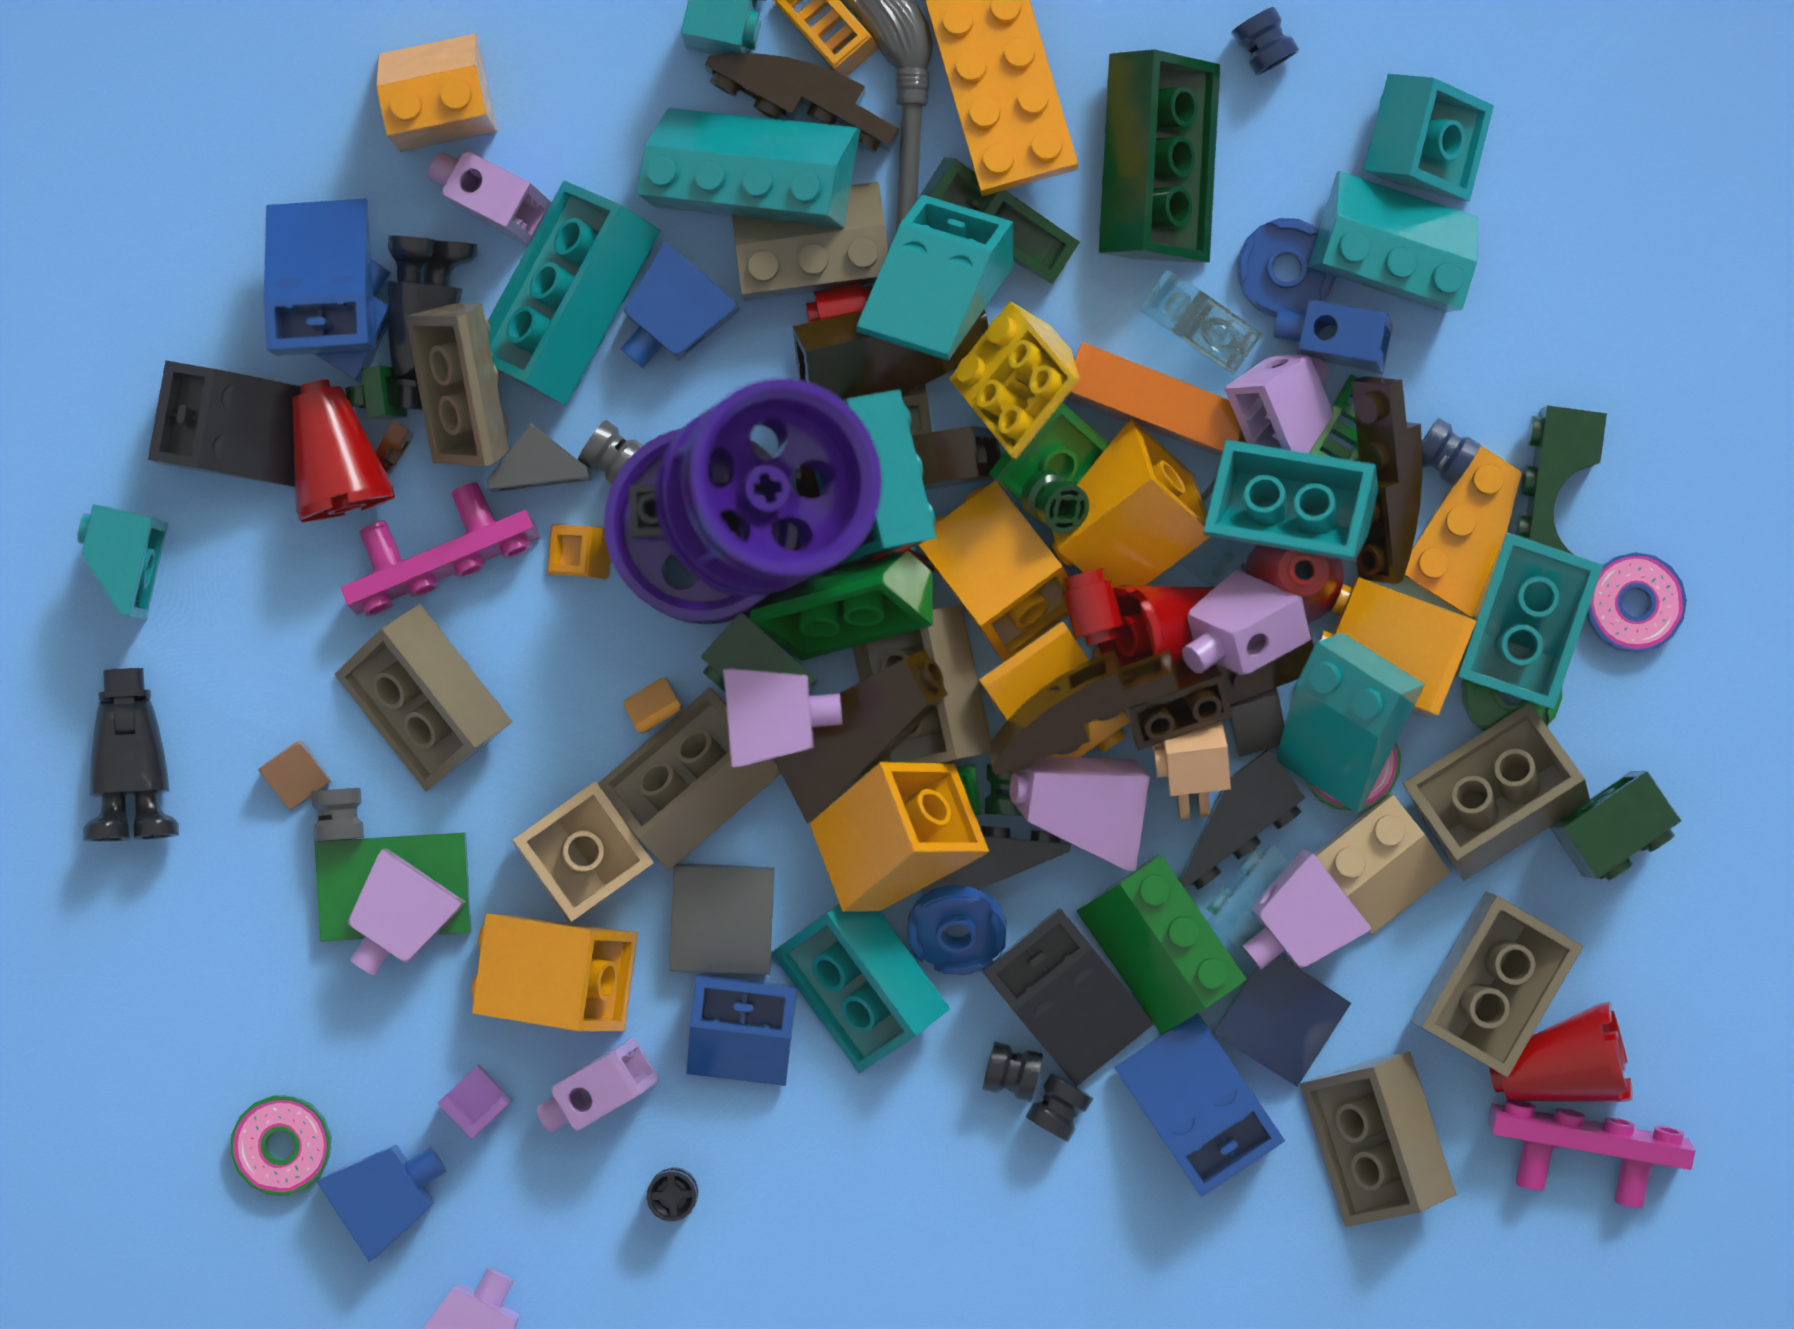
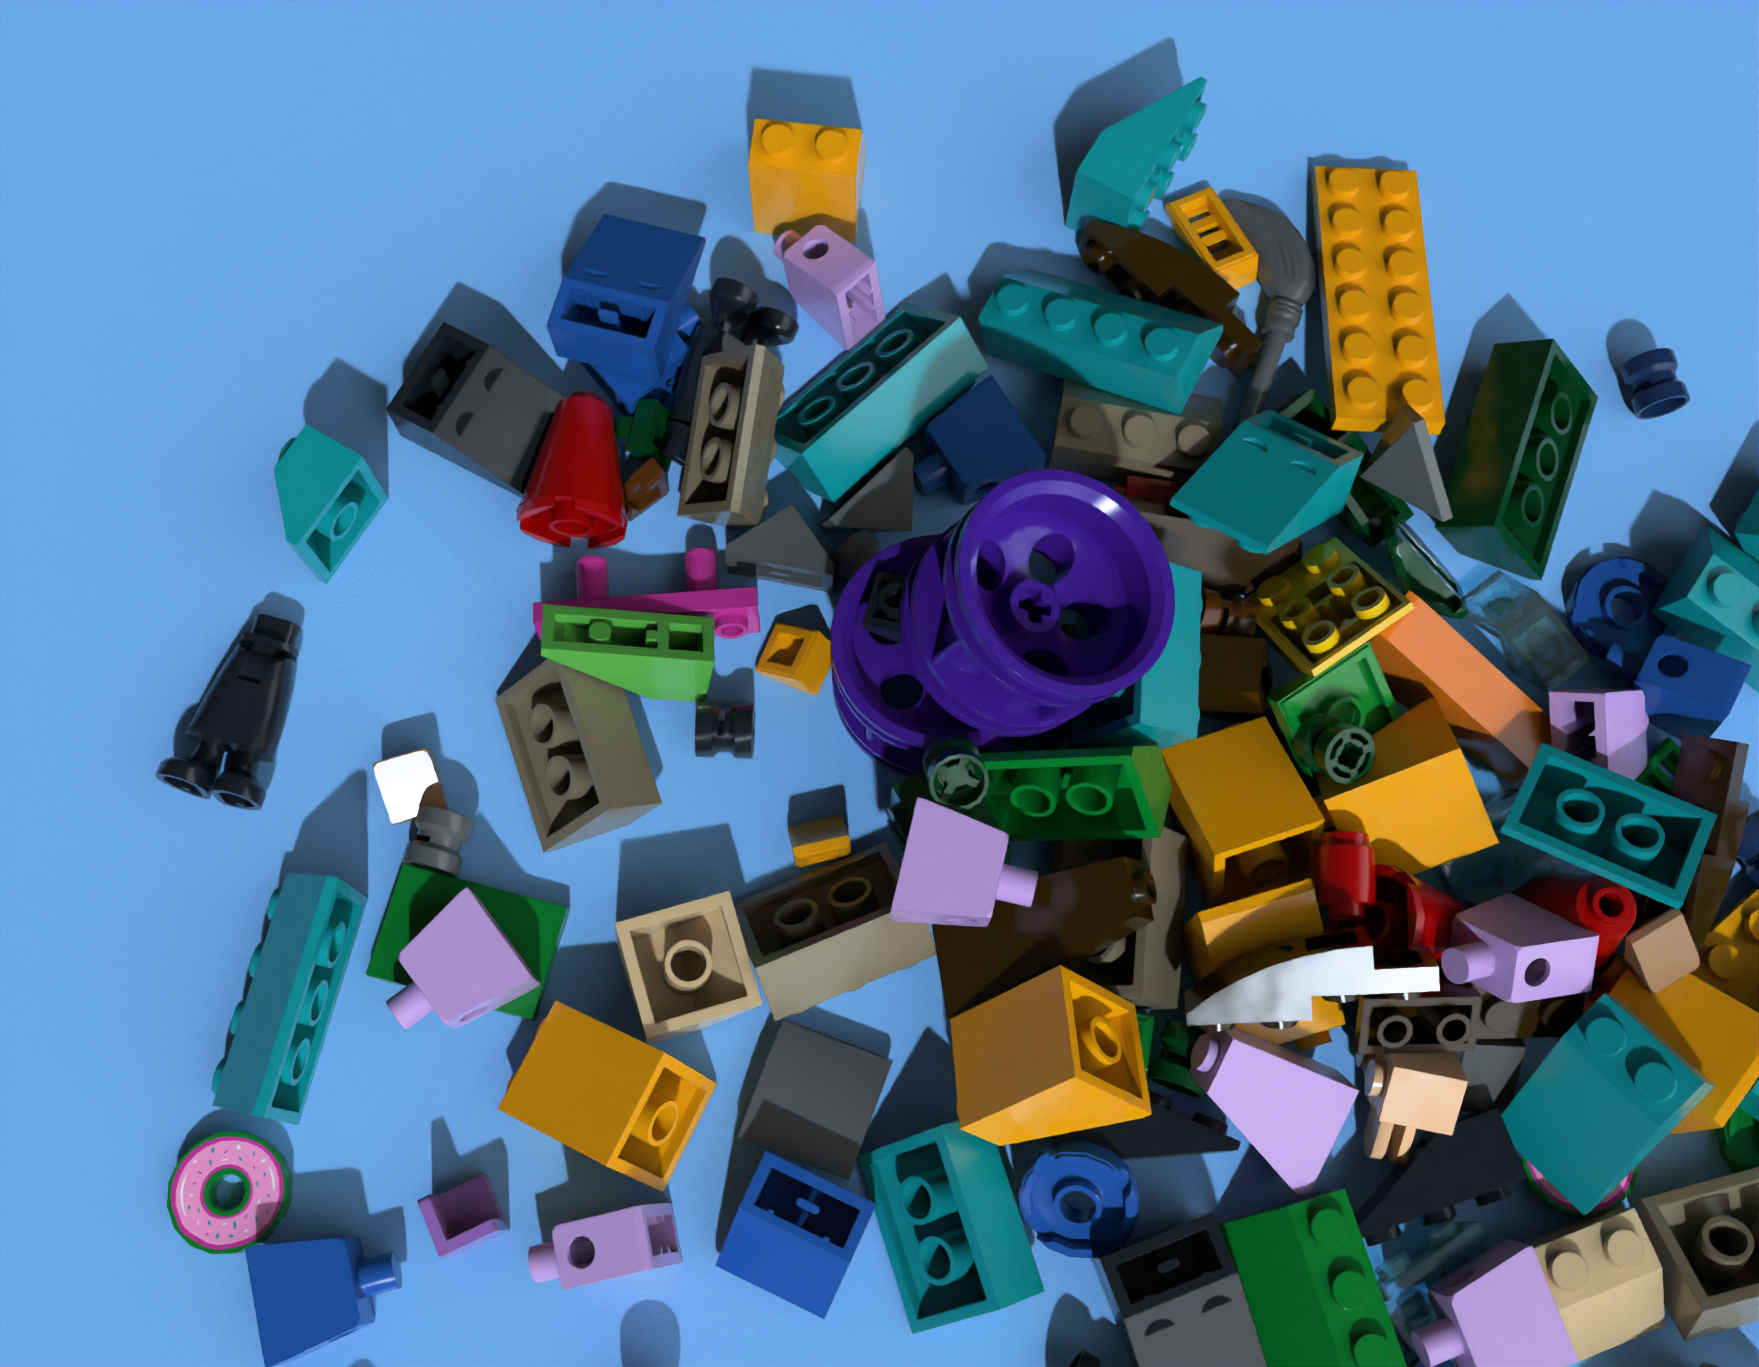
camera: 10 degrees right, 15 degrees down
(268, 982) = (289, 998): none -> teal slope
(441, 601) = (633, 649): none -> bright green slope
(552, 635) = (738, 729): none -> black wheel
(604, 389) = (880, 502): none -> dark grey slope
(747, 635) = (960, 783): none -> dark green wheel
(933, 407) = (1227, 617): none -> reddish brown wheel
(1056, 214) = (1407, 465): none -> dark grey slope
(1096, 305) = (1420, 573): none -> dark green slope
(1367, 582) = (1661, 951): none -> medium nougat slope

